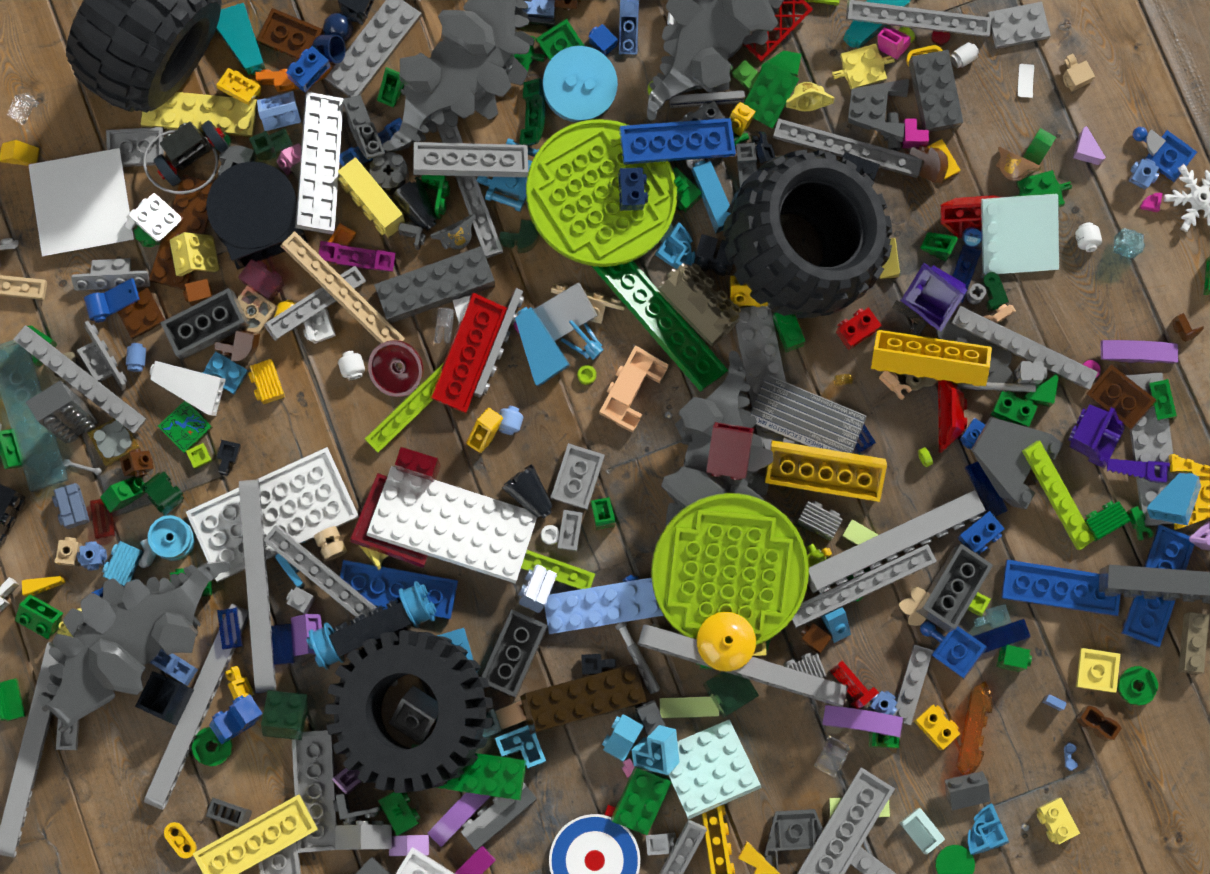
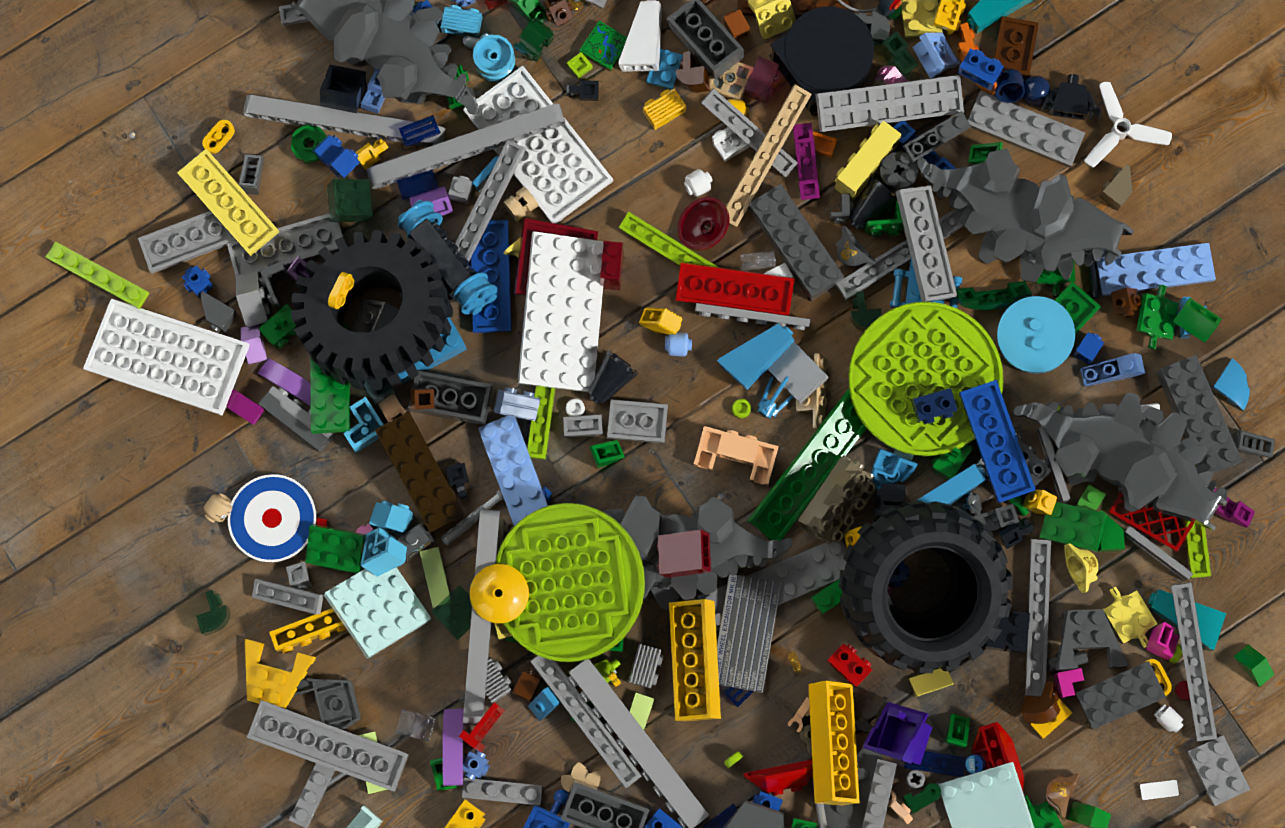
camera: 85 degrees right, 0 degrees up
(392, 738) = (338, 294): none -> yellow plate
(512, 678) = (422, 398): none -> reddish brown brick
(727, 180) = (973, 503): none -> dark grey plant
(811, 26) = (1157, 553): none -> light grey tile

